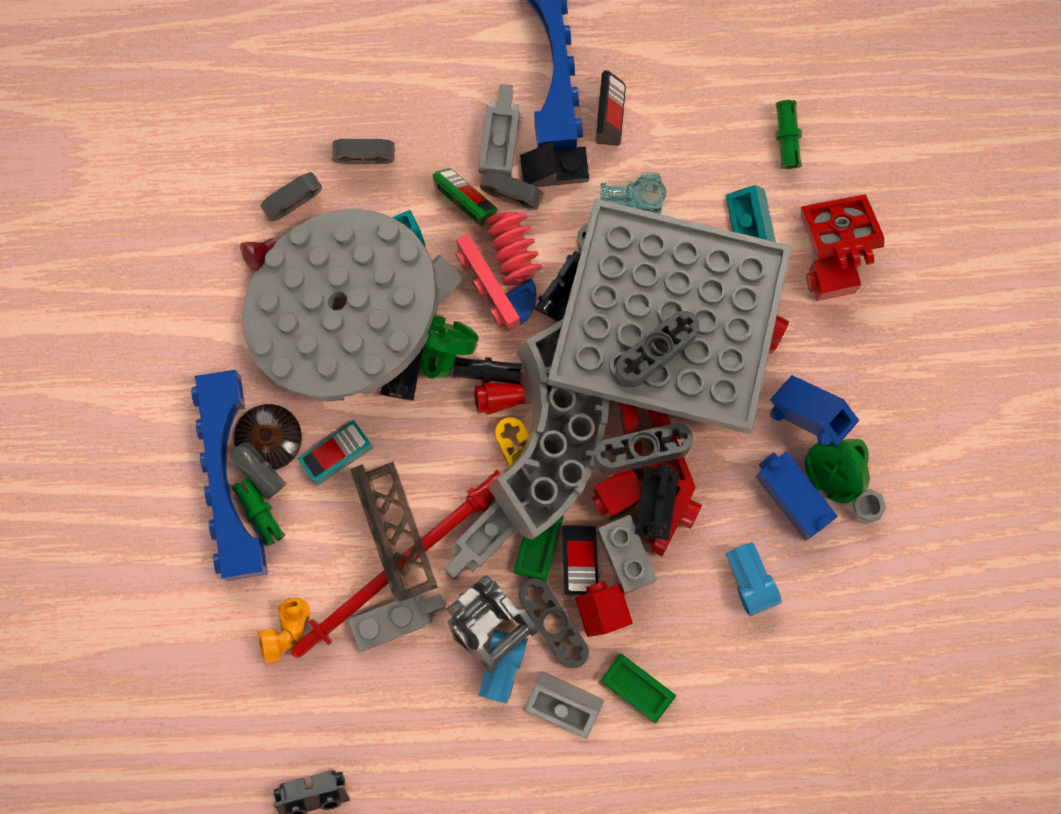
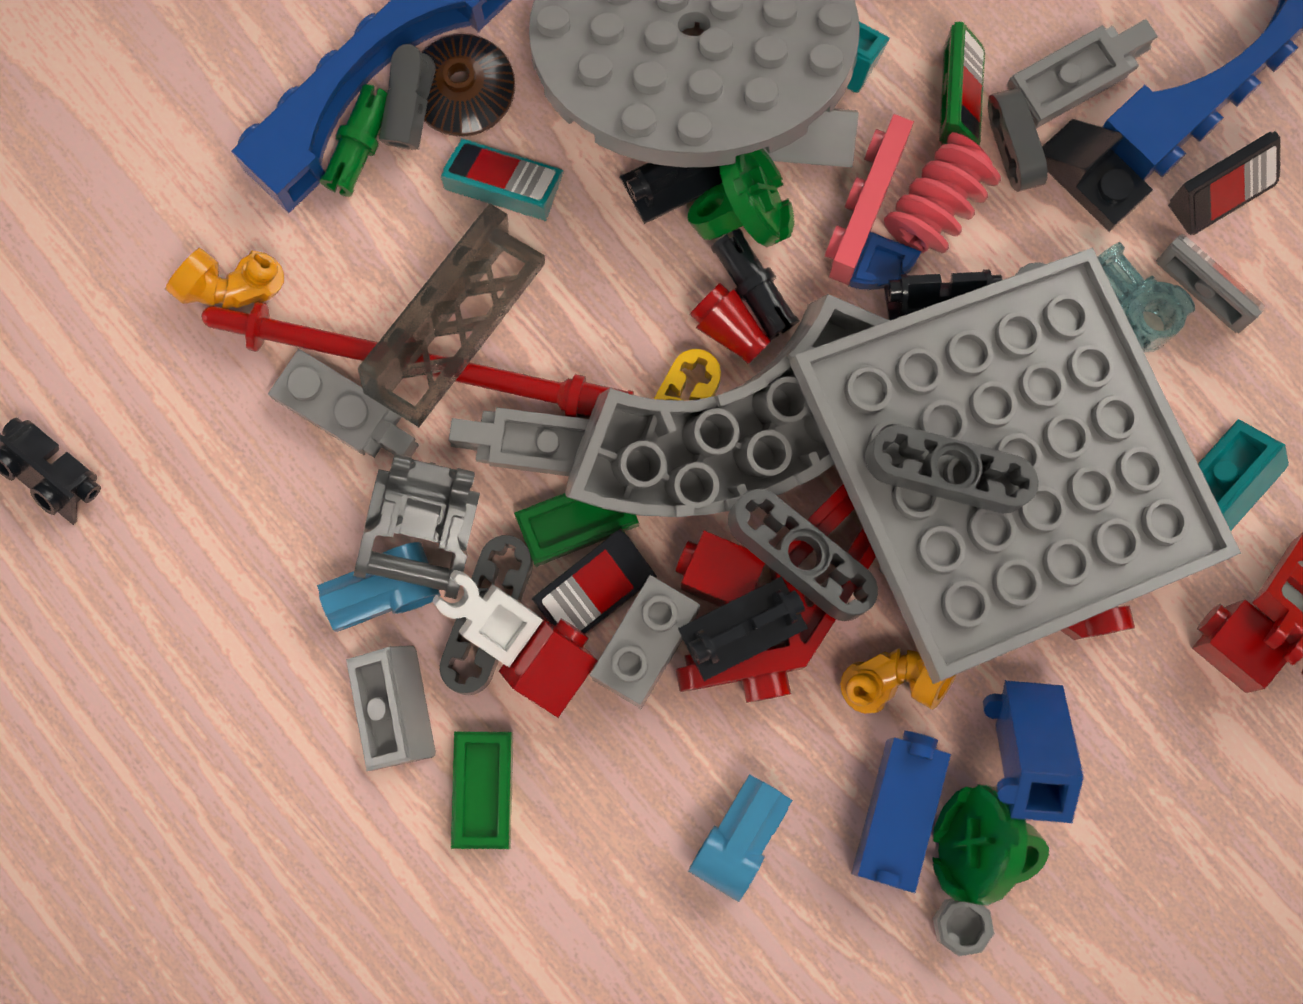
camera: 55 degrees right, 0 degrees up
(563, 620) = (493, 621): none -> white plate
(651, 155) = (1210, 284): none -> light grey slope
(724, 461) = (874, 682): none -> light orange arm

